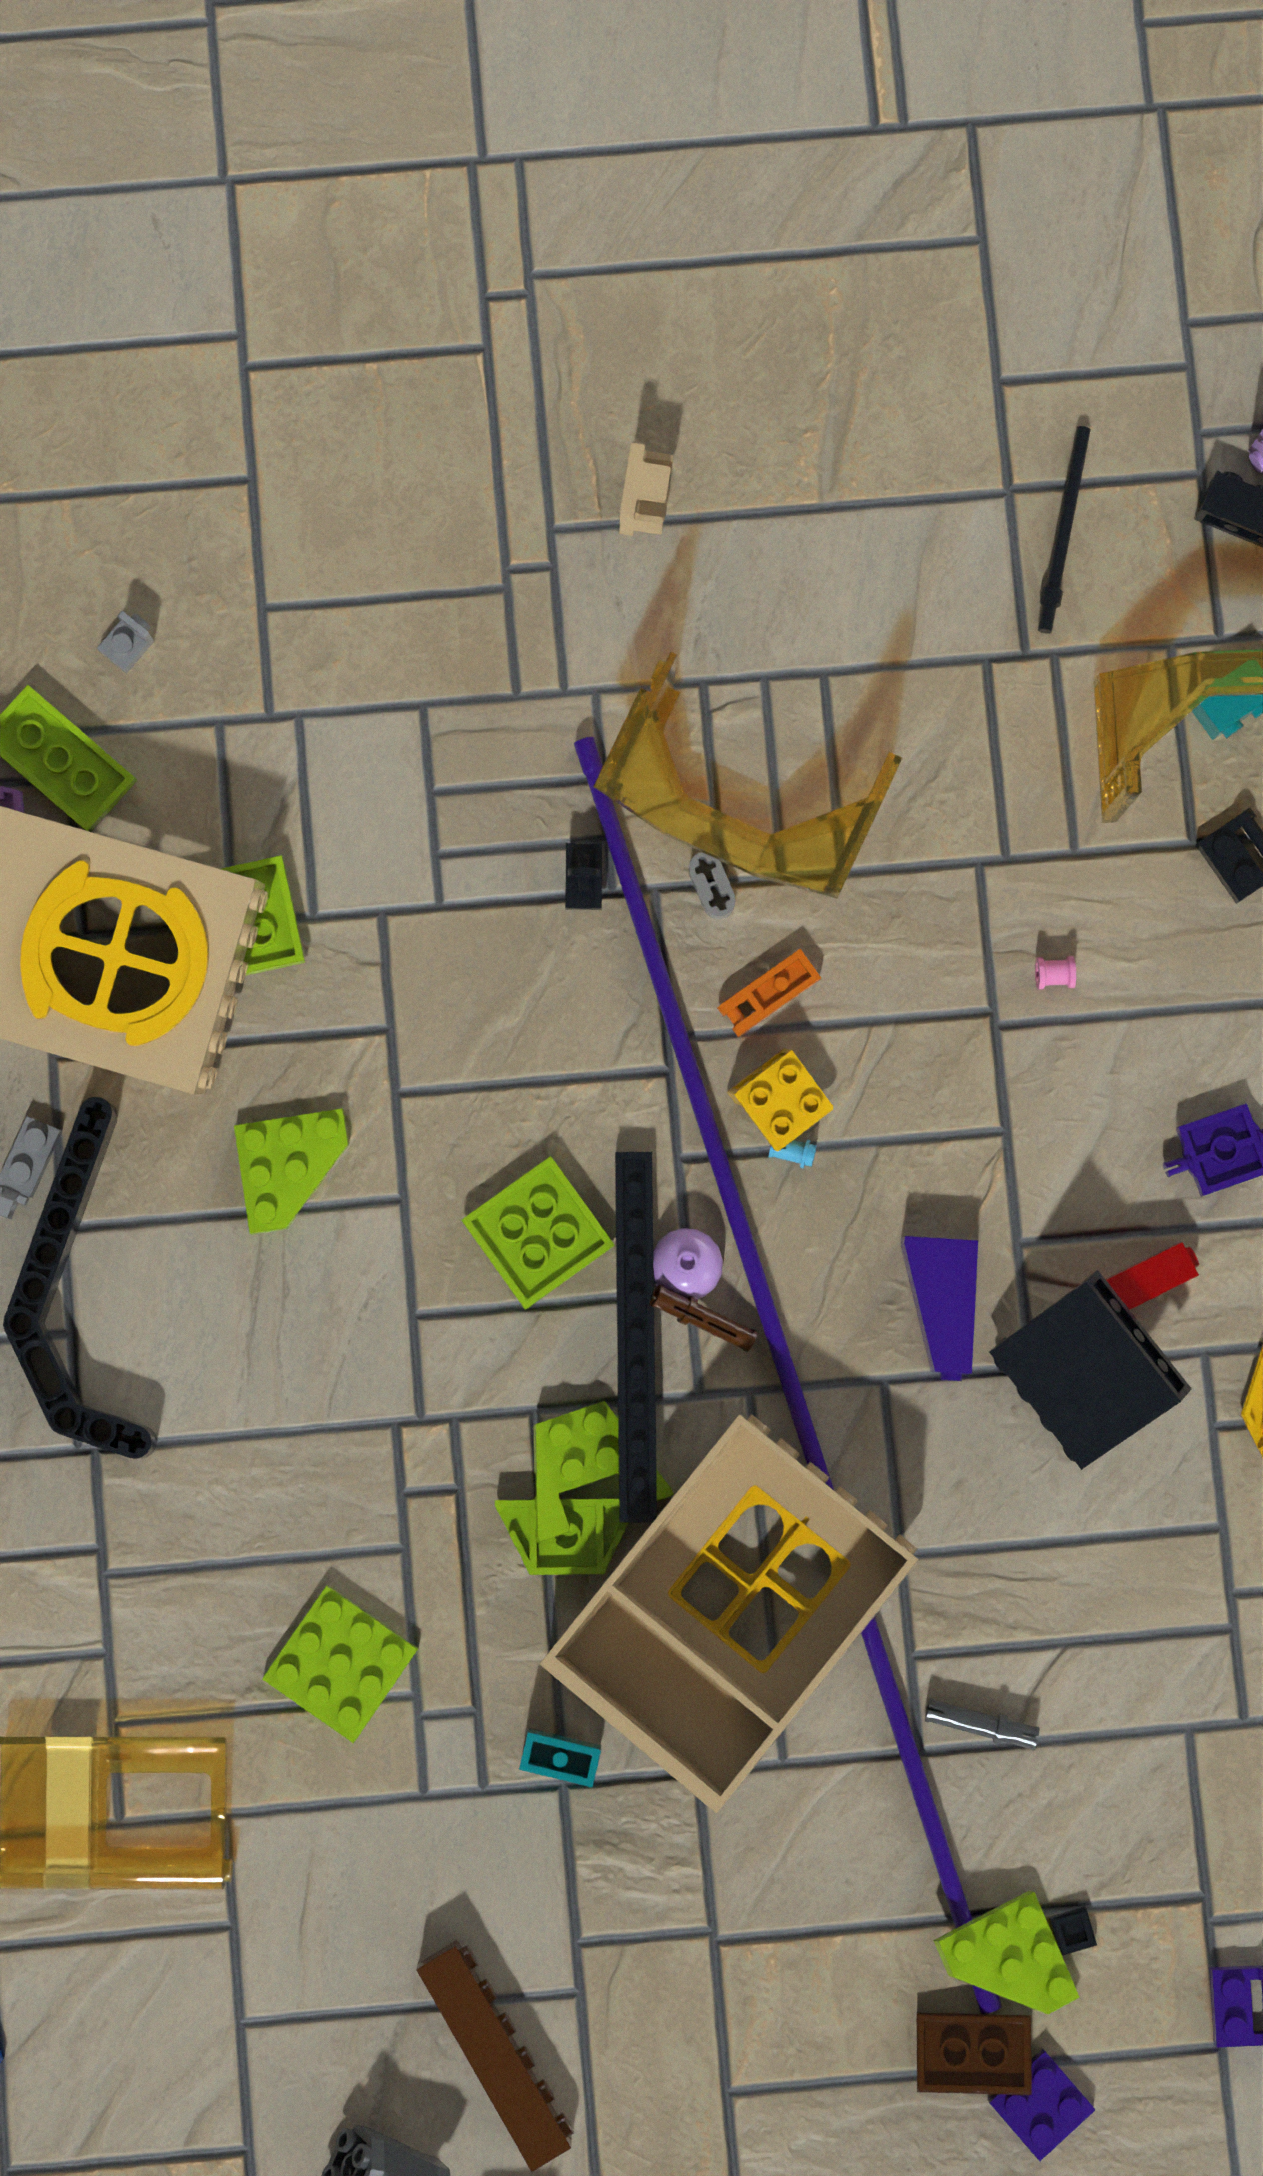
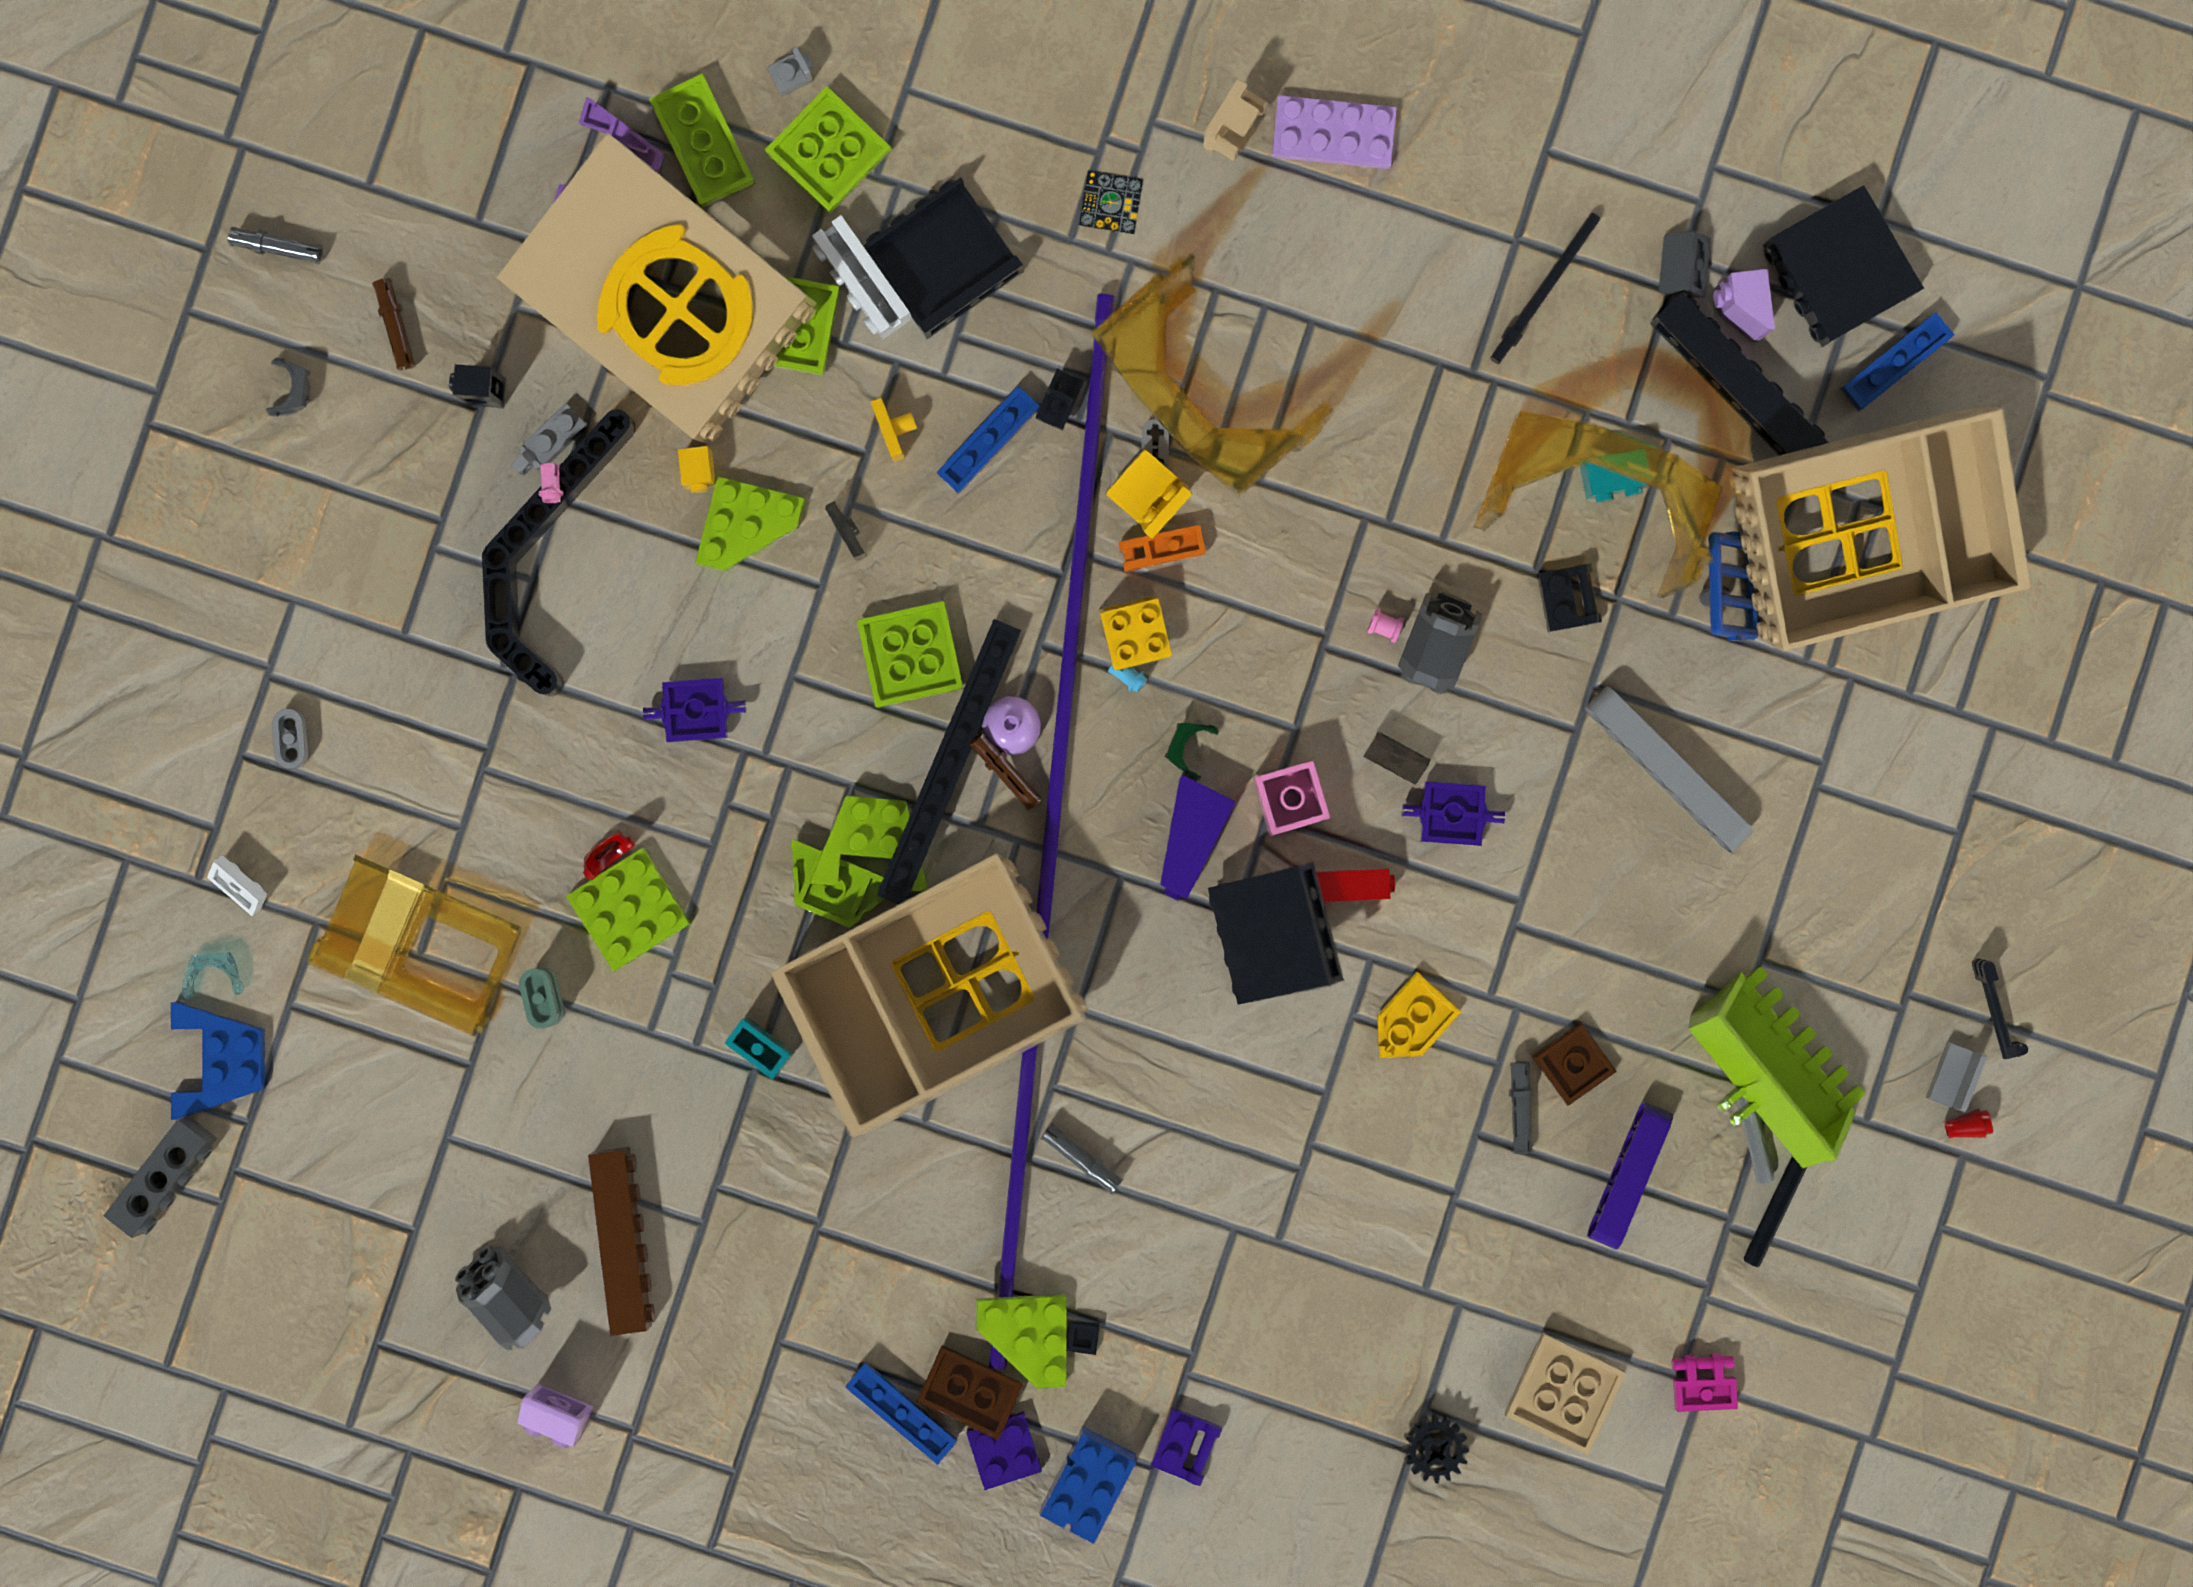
camera: 30 degrees right, 5 degrees up
(49, 1213) = (550, 483): none -> bright pink pin
(204, 710) = (828, 149): none -> lime plate
(207, 1127) = (696, 468): none -> yellow brick
(281, 1629) = (594, 866): none -> red helmet
(284, 1809) = (541, 997): none -> sand green brick
(303, 835) = (861, 277): none -> white brick
(320, 1401) = (694, 710): none -> dark purple plate
(383, 775) = (943, 257): none -> black panel
(407, 1123) = (847, 530): none -> clear smoke plate
(409, 987) = (892, 427): none -> yellow tile
(522, 955) = (988, 440): none -> blue plate
(544, 636) = (1110, 202): none -> sticker
(729, 937) = (1149, 492): none -> yellow bracket
(757, 457) = (1334, 132): none -> lavender plate
(883, 1194) = (1181, 735): none -> dark green helmet
(905, 2113) = (901, 1413): none -> blue plate
(1038, 1210) = (1291, 798): none -> bright pink brick
(1124, 965) = (1439, 642): none -> dark grey brick
(1133, 1114) = (1396, 758): none -> clear smoke plate
(1160, 2105) = (1089, 1487): none -> blue piece
(1204, 439) = (1684, 264): none -> dark grey panel

